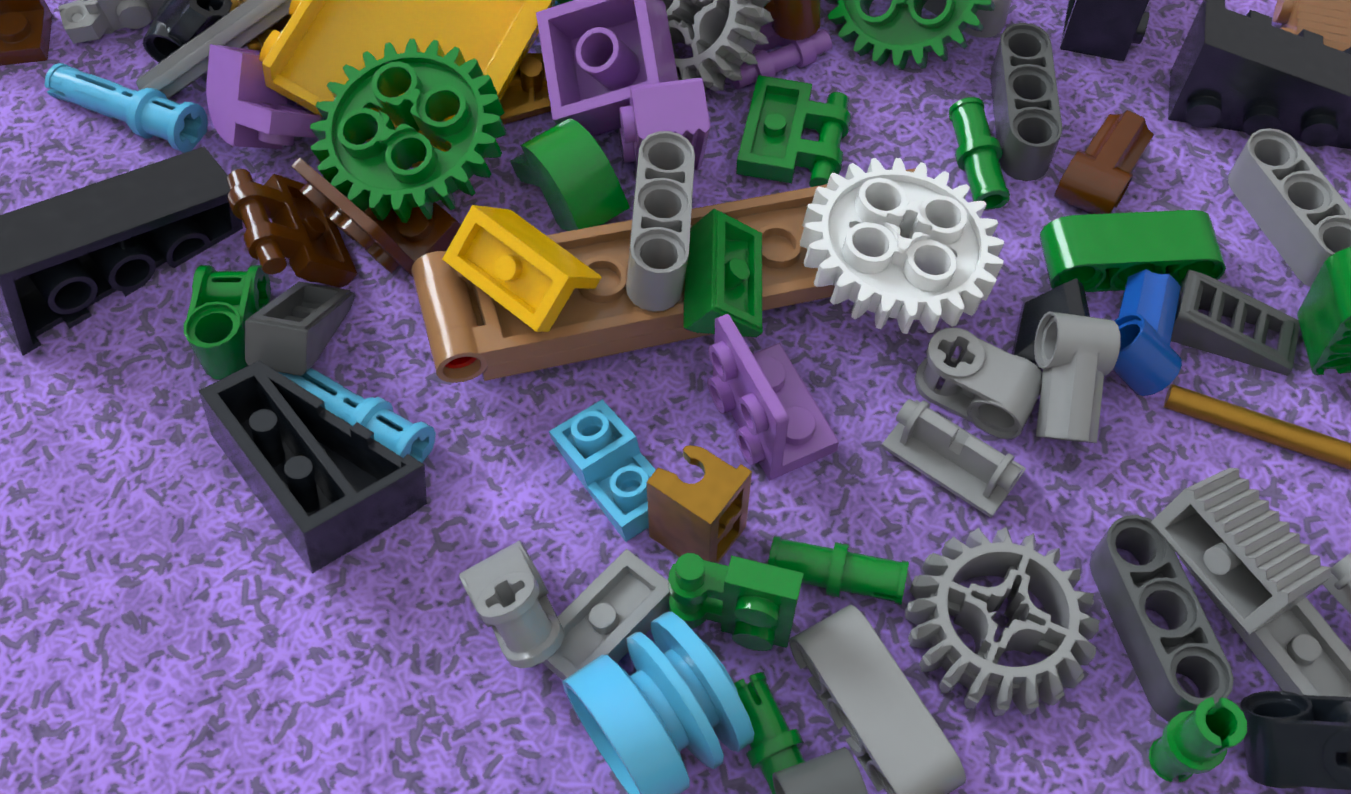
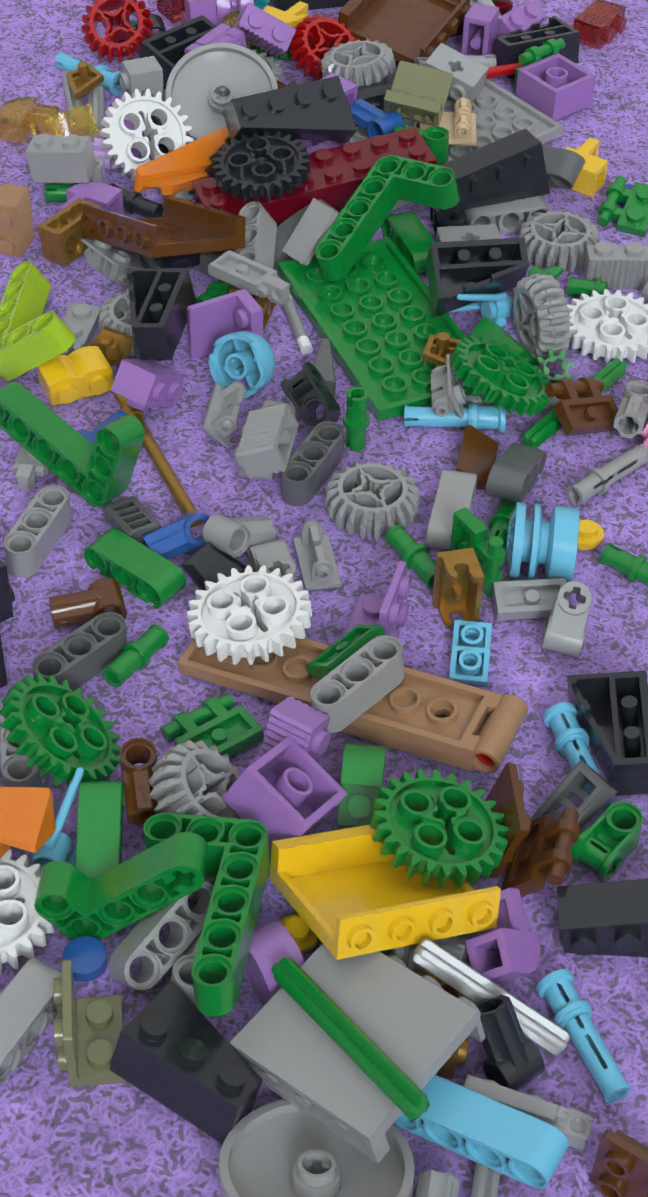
camera: 140 degrees left, 15 degrees down
(517, 265) = (445, 702): yellow panel -> none

